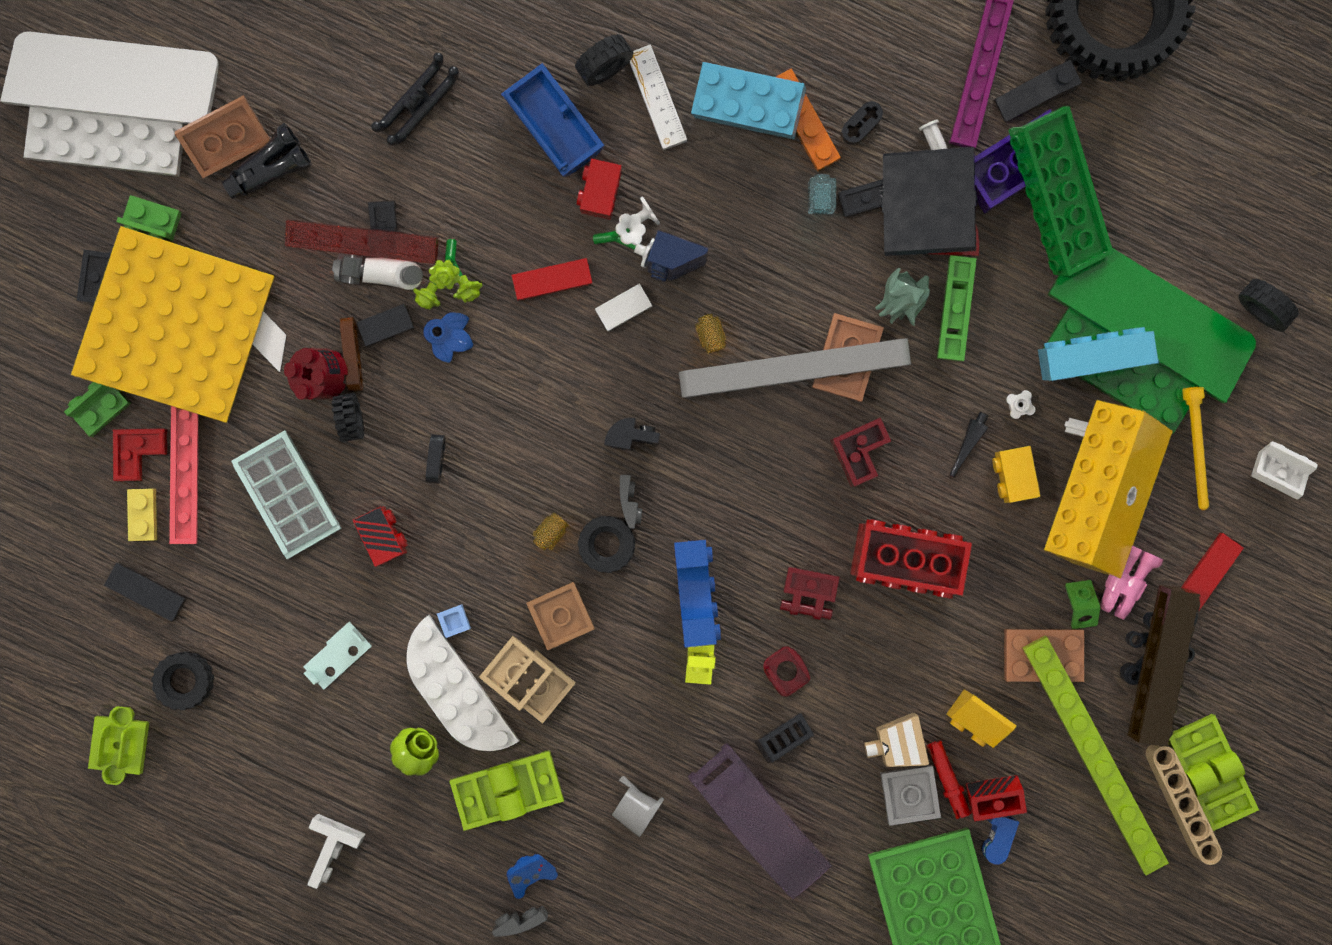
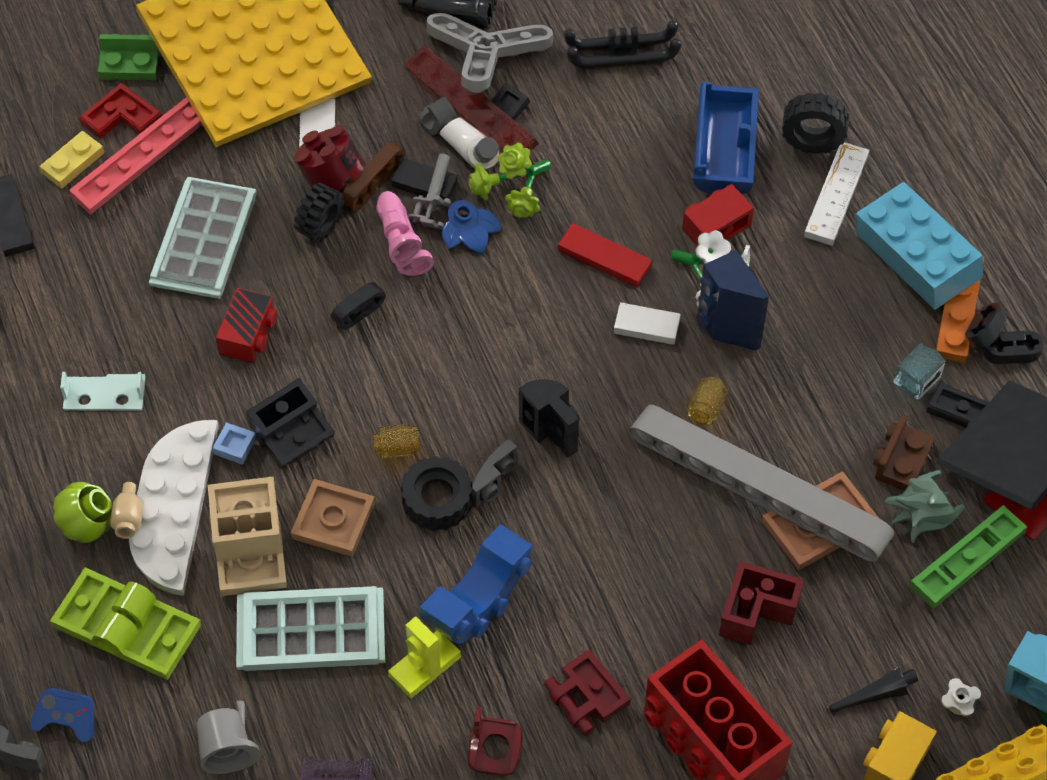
camera: 40 degrees right, 30 degrees down
(311, 188) = (484, 47): none -> light grey piece
(404, 334) = (433, 196): none -> light grey piece
(411, 384) = (403, 242): none -> bright pink piece
(440, 728) = (126, 512): none -> tan plant
(477, 581) = (289, 423): none -> black brick
(614, 695) = (310, 628): none -> light aqua piece
(834, 126) = (986, 326): none -> black beam
(859, 265) = (903, 455): none -> reddish brown bracket

